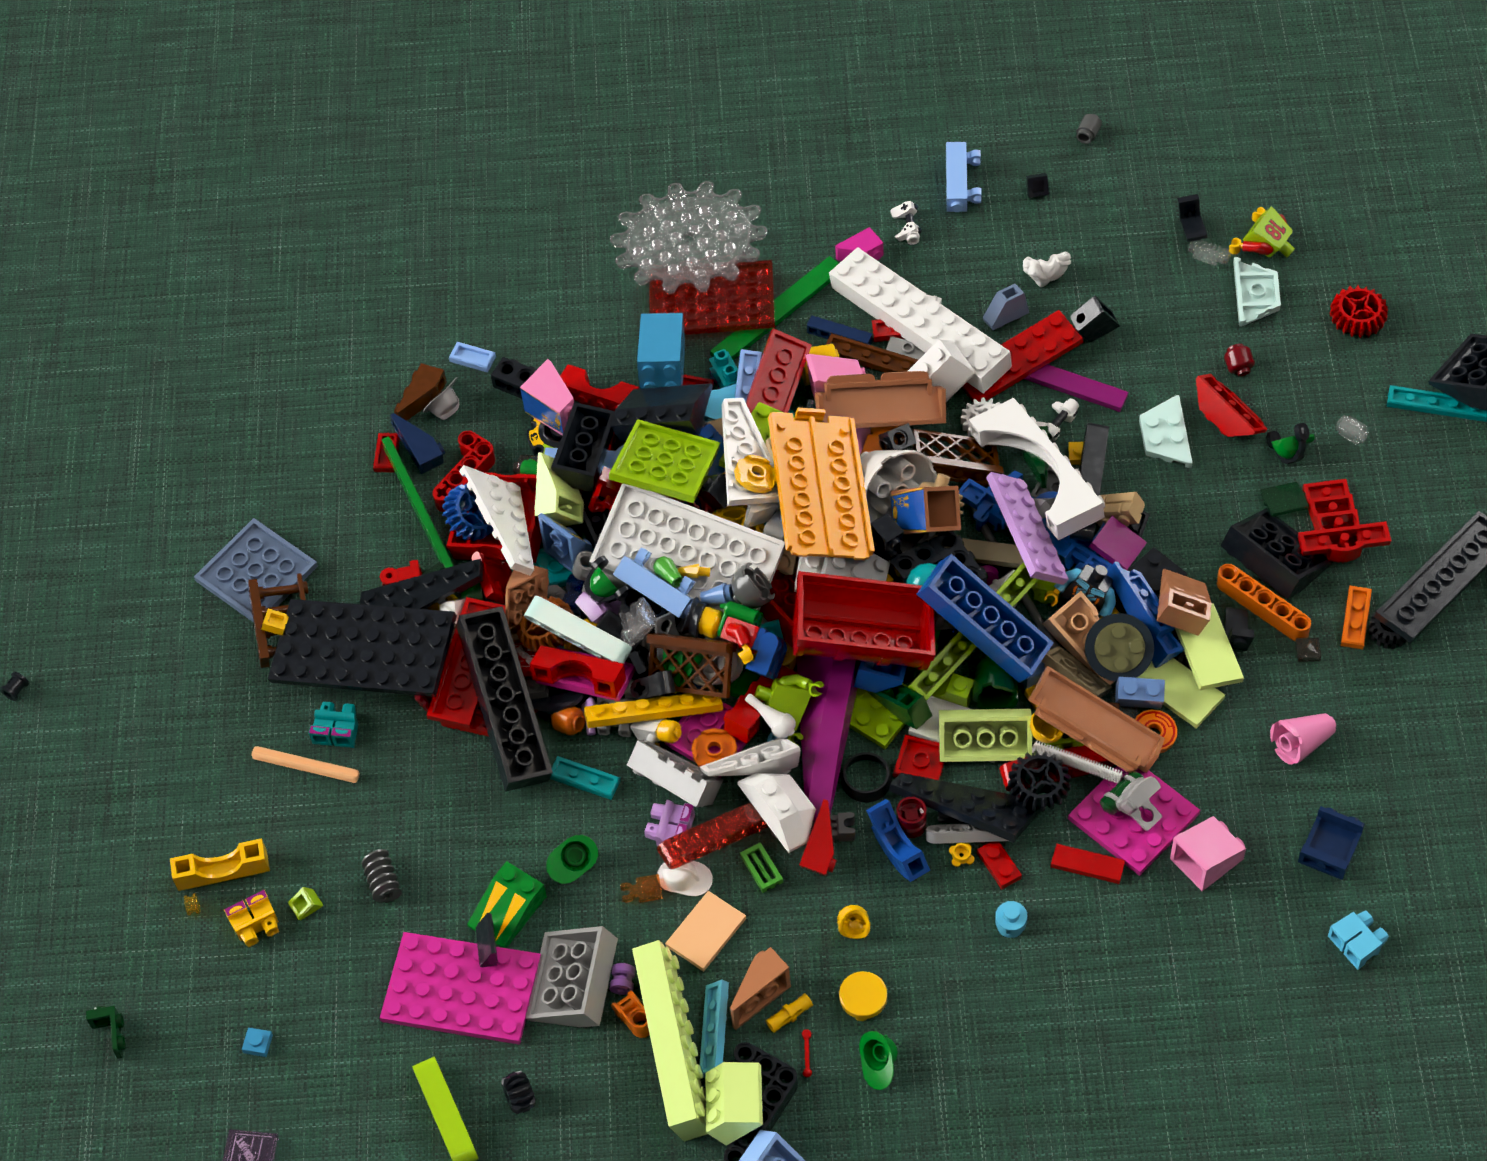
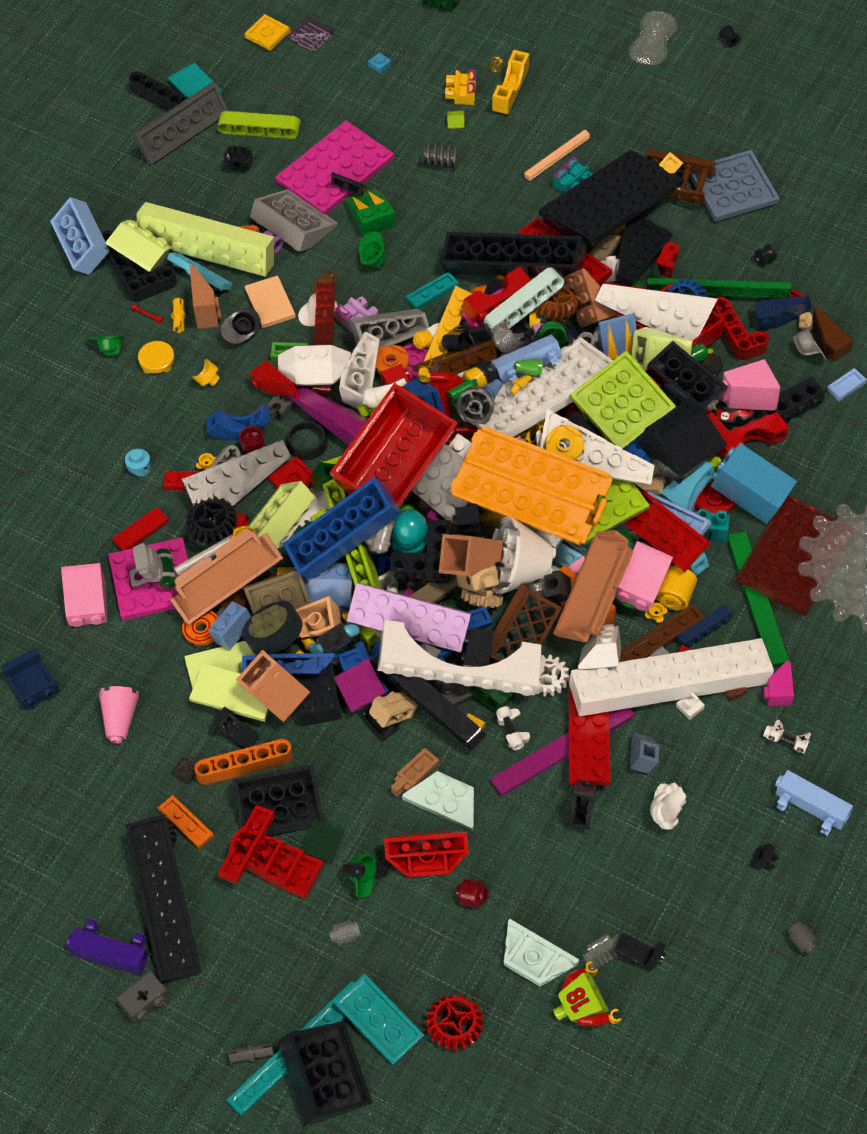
camera: 120 degrees right, 0 degrees up
(34, 772) = (651, 44): none -> clear plate
(342, 494) = (765, 254): none -> black wheel
(415, 419) = (806, 318): none -> tan piece
(766, 928) = (240, 325): none -> black piece
(1013, 462) = (479, 648): none -> black brick
(1162, 466) = (414, 772): none -> medium nougat hinge
(1403, 364) = (379, 1019): none -> teal tile

